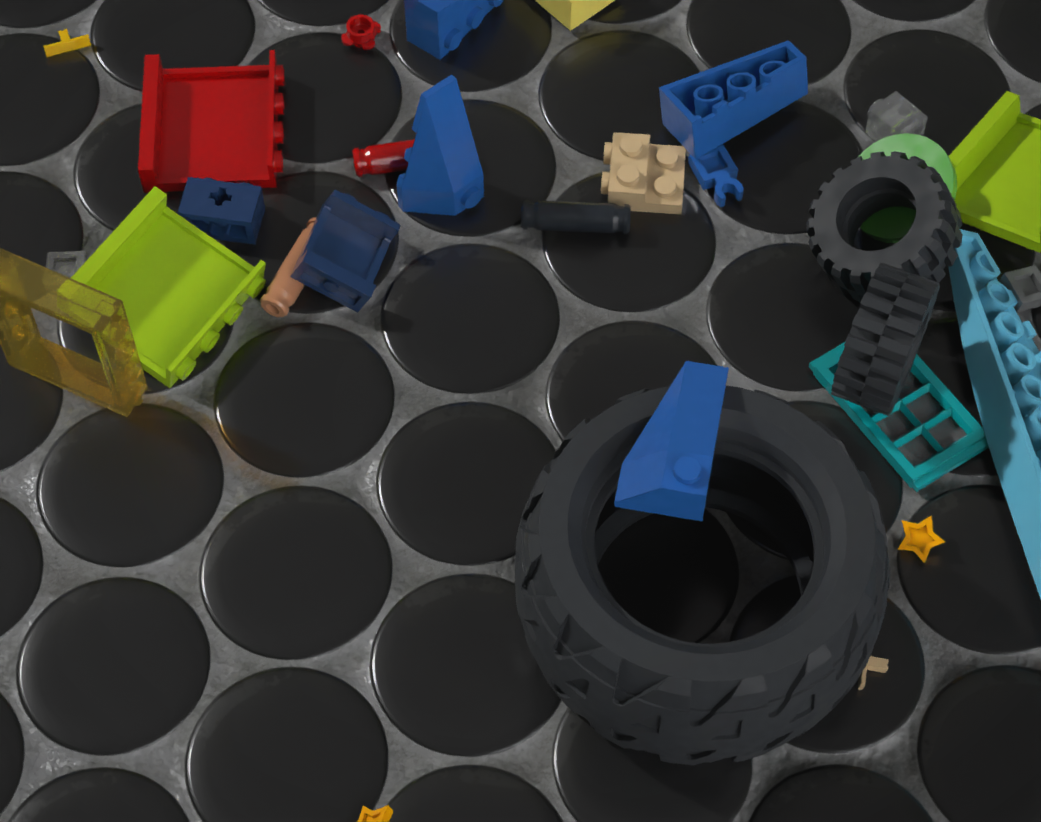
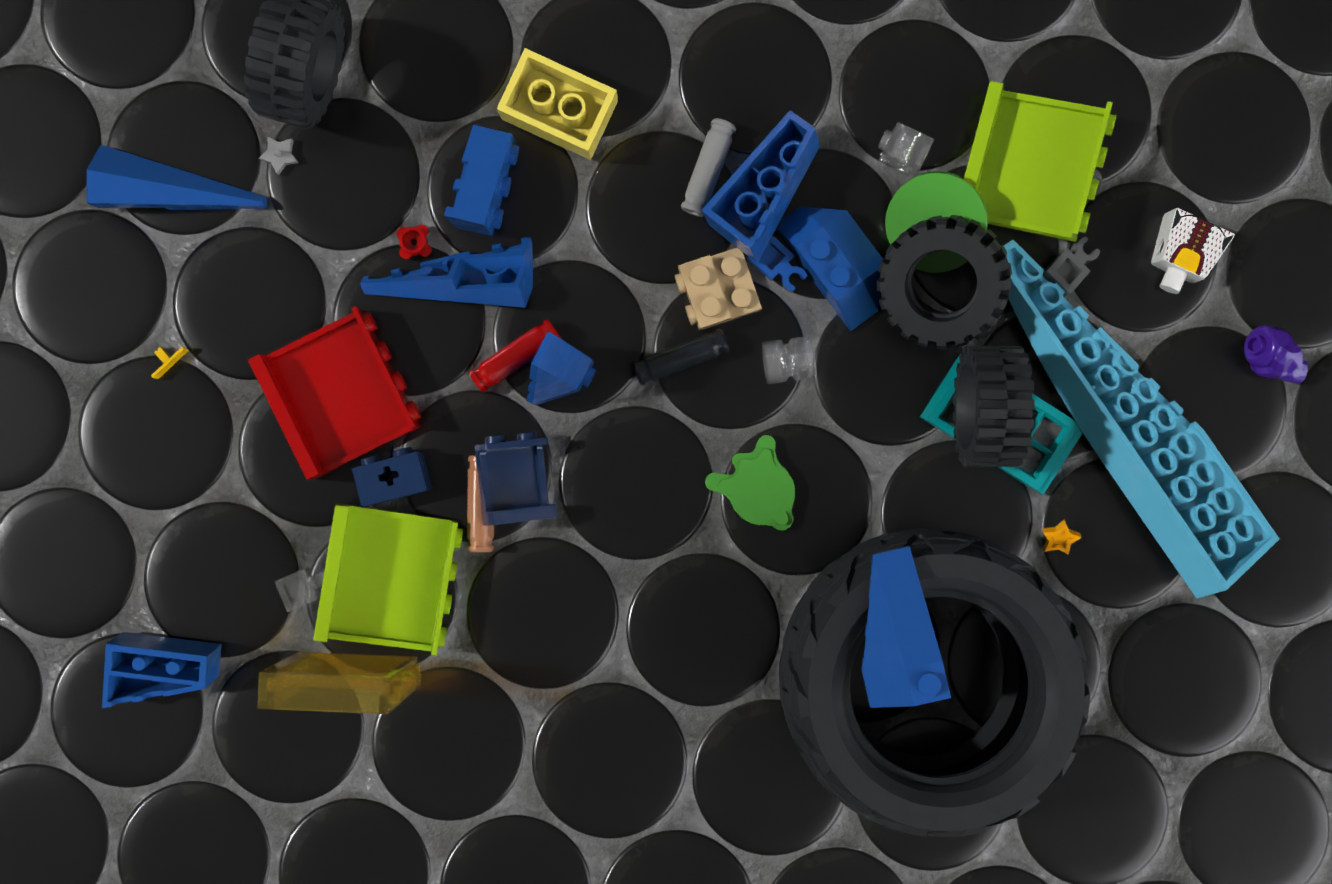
camera: 25 degrees left, 30 degrees up
(388, 76) = (488, 278): none -> blue wedge
(599, 365) = (759, 487): none -> bright green tile
(682, 253) = (788, 360): none -> clear wheel
(698, 59) = (708, 166): none -> light grey axle
(778, 191) = (836, 259): none -> blue wedge

